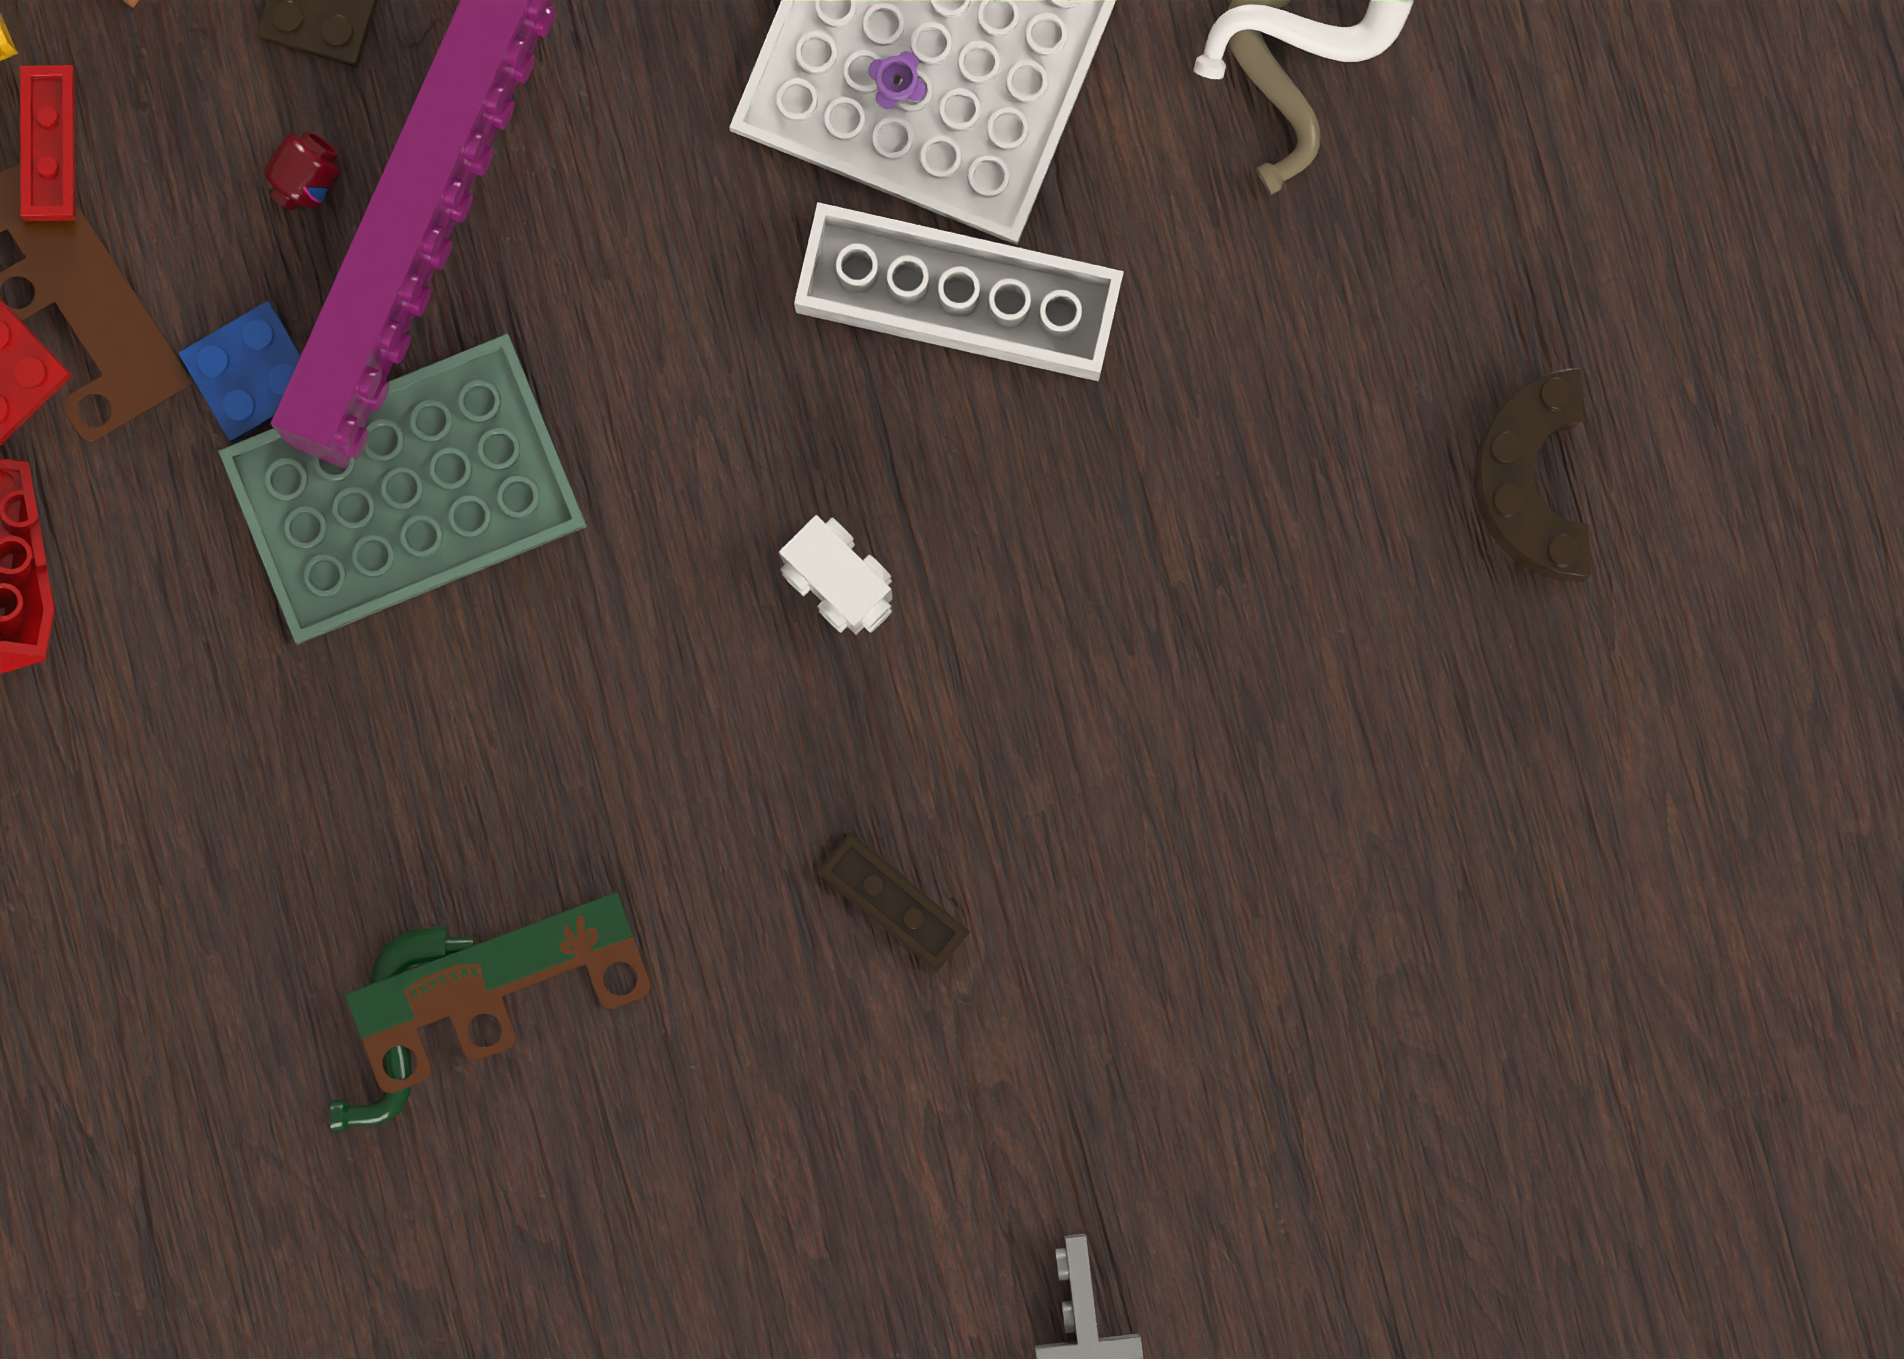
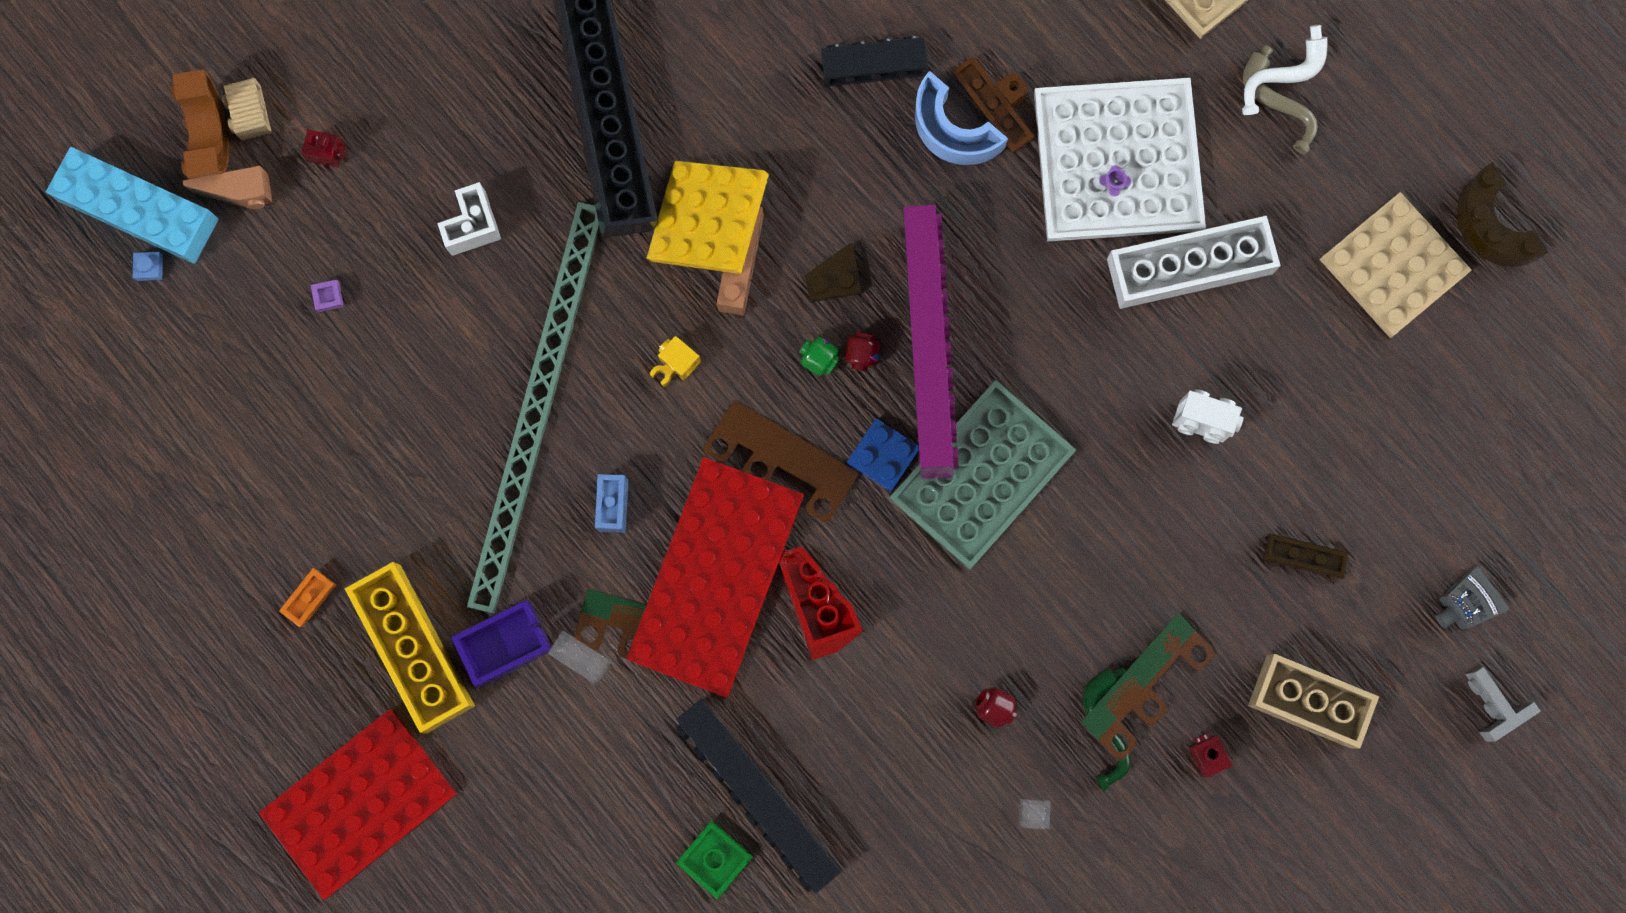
camera: 20 degrees left, 5 degrees down
(47, 143) = (738, 394): red plate -> none
(191, 1111) = (1034, 813): none -> clear brick
(219, 900) = (995, 707): none -> dark red head
(221, 143) = (819, 356): none -> green head
(543, 1158) = (1209, 755): none -> dark red brick
(764, 1152) = (1313, 701): none -> tan brick
(1130, 1116) = (1470, 601): none -> dark grey torso
(1324, 468) = (1395, 265): none -> tan plate

